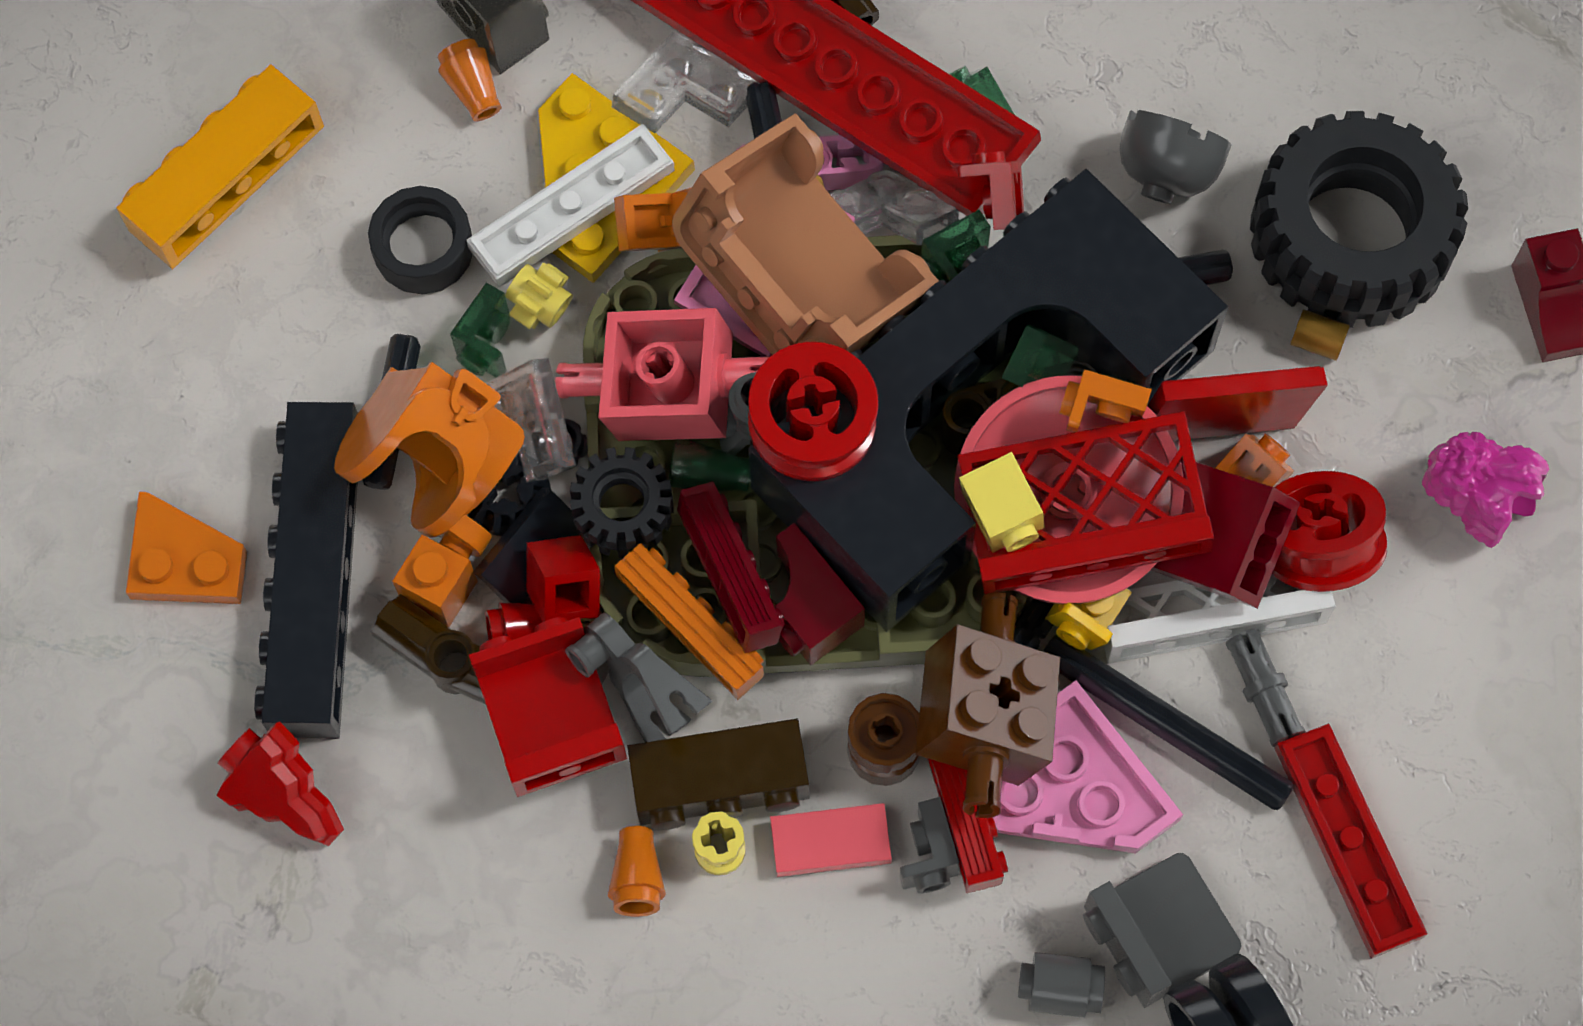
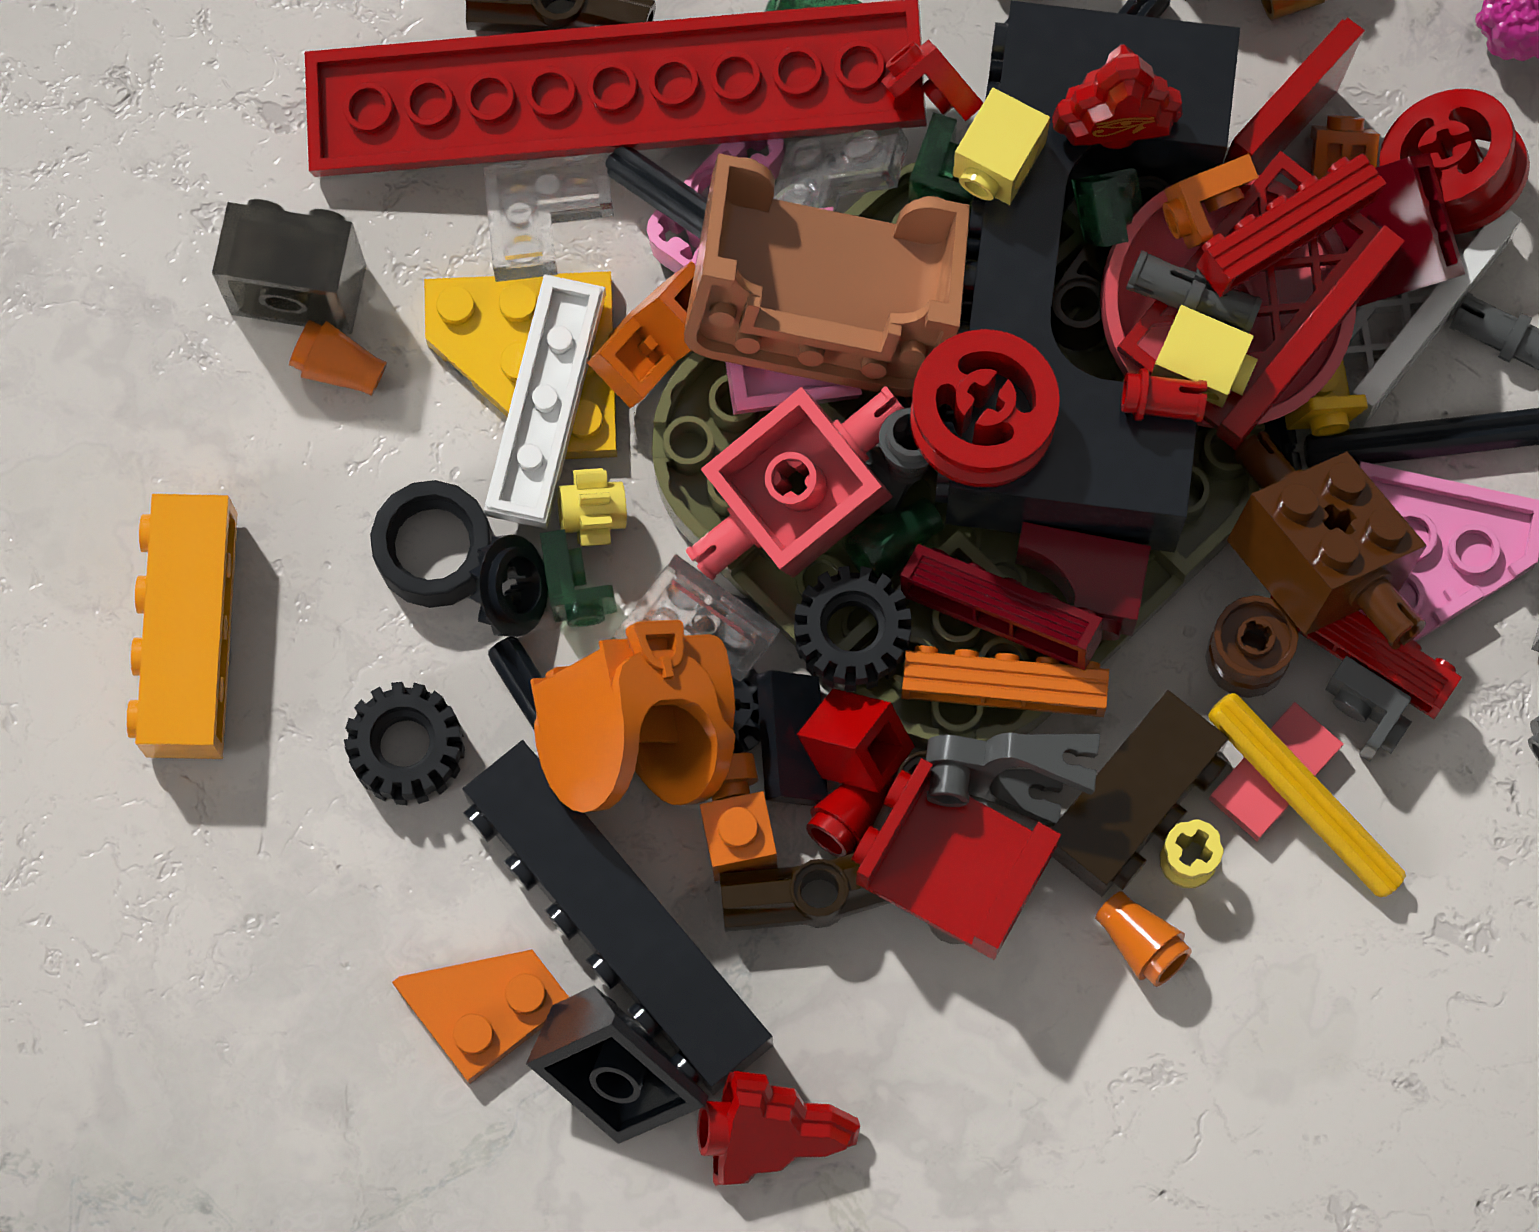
camera: 40 degrees left, 5 degrees up
(214, 654) = (611, 1067): none -> black slope
(275, 323) = (396, 706): none -> black tyre
(443, 277) = (525, 601): none -> black gear
(831, 870) = (1307, 795): none -> yellow axle
(942, 501) = (1163, 397): none -> red pin
(982, 251) = (1000, 147): none -> light yellow brick
(1035, 457) = (1184, 287): none -> dark grey pin
(1087, 283) = (1118, 104): none -> red rock
(1140, 460) = (1289, 223): none -> red piece

